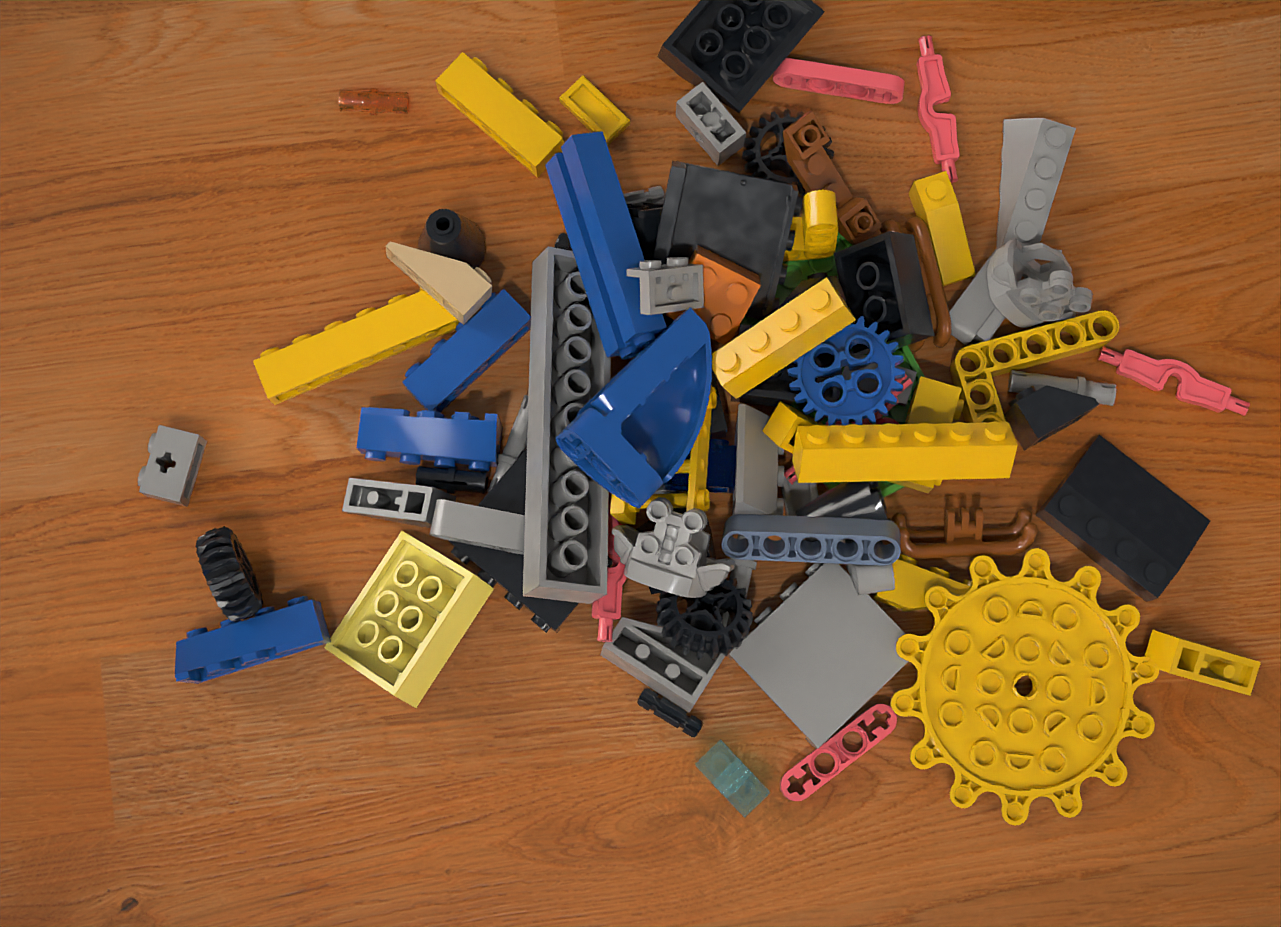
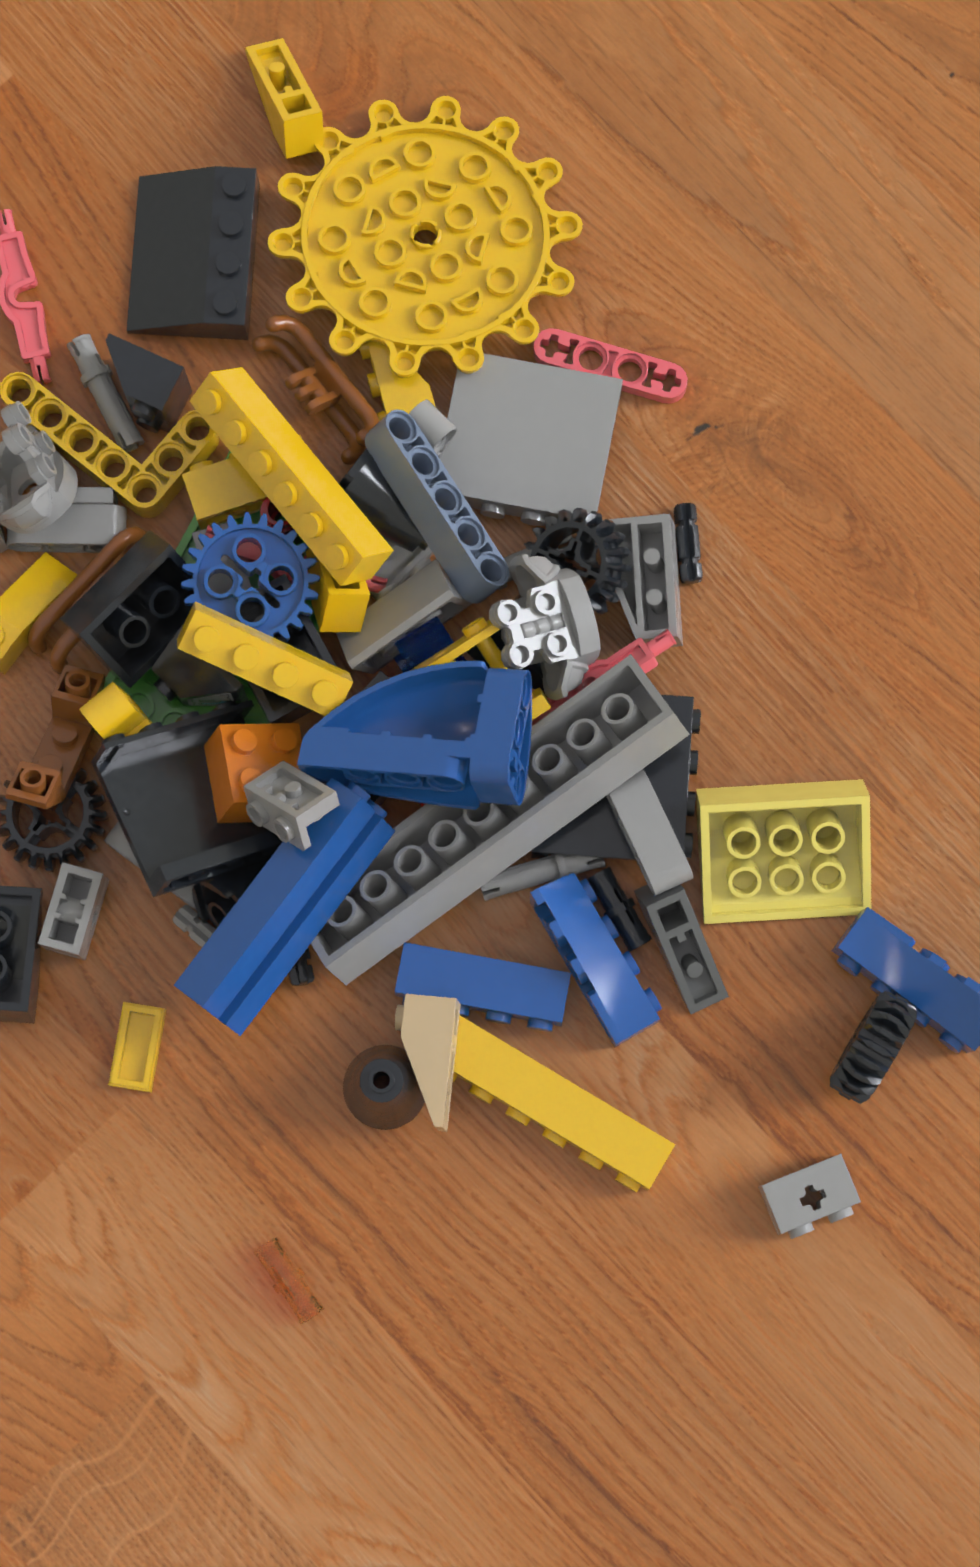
camera: 125 degrees left, 0 degrees up
(499, 113) = (210, 1137): yellow brick -> none
(732, 778) = (708, 441): clear light blue brick -> none

